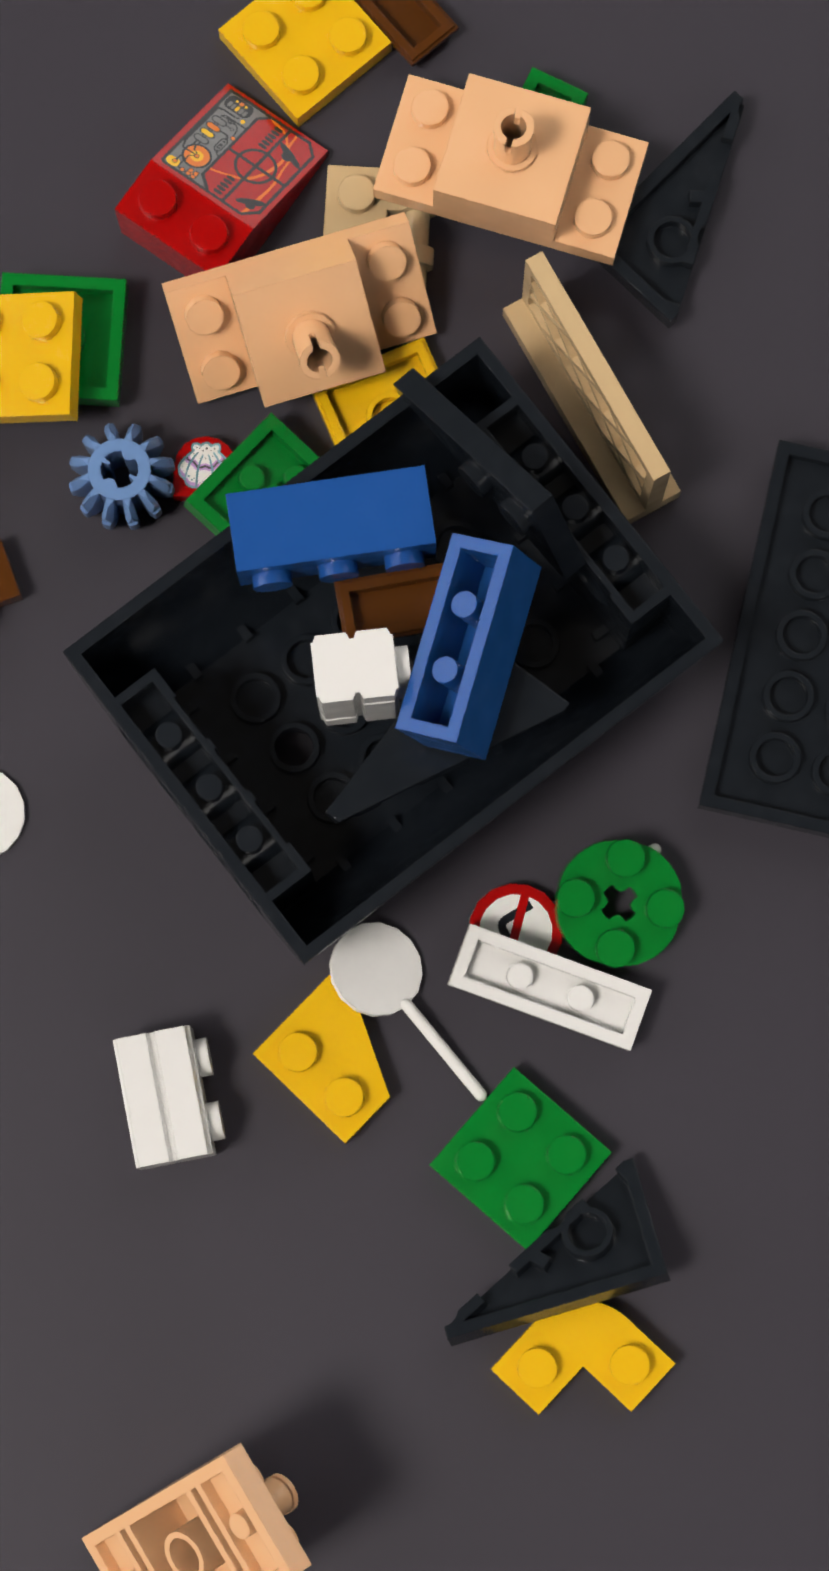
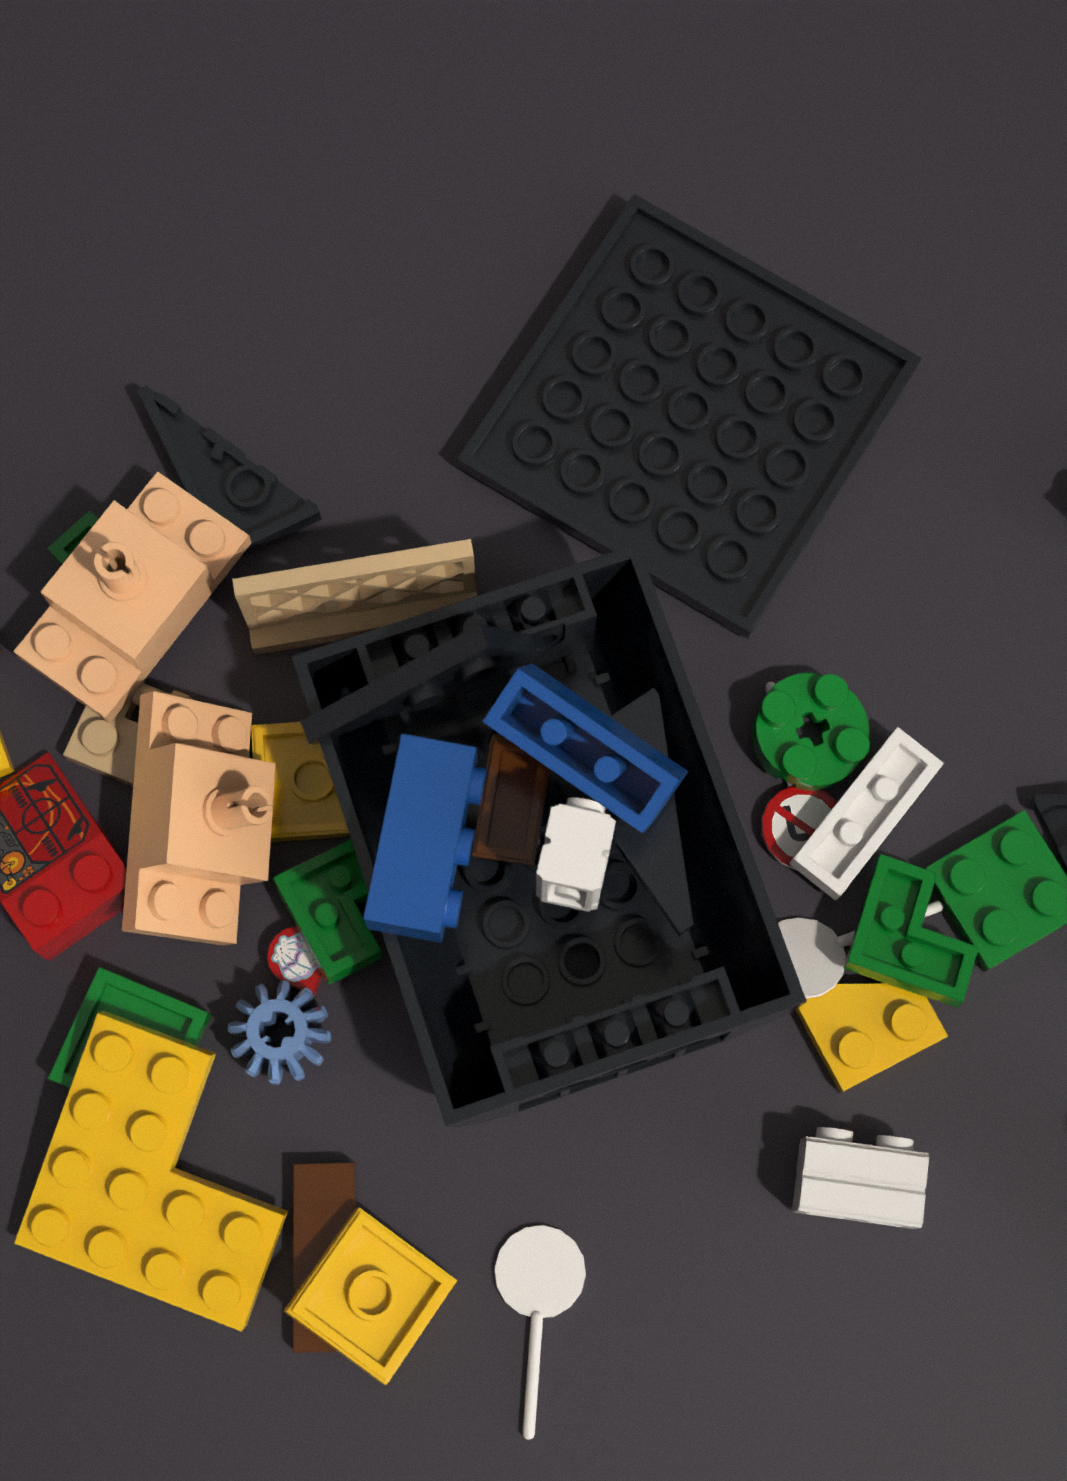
camera: 75 degrees left, 5 degrees down
(415, 1055) = (896, 948): none -> green plate

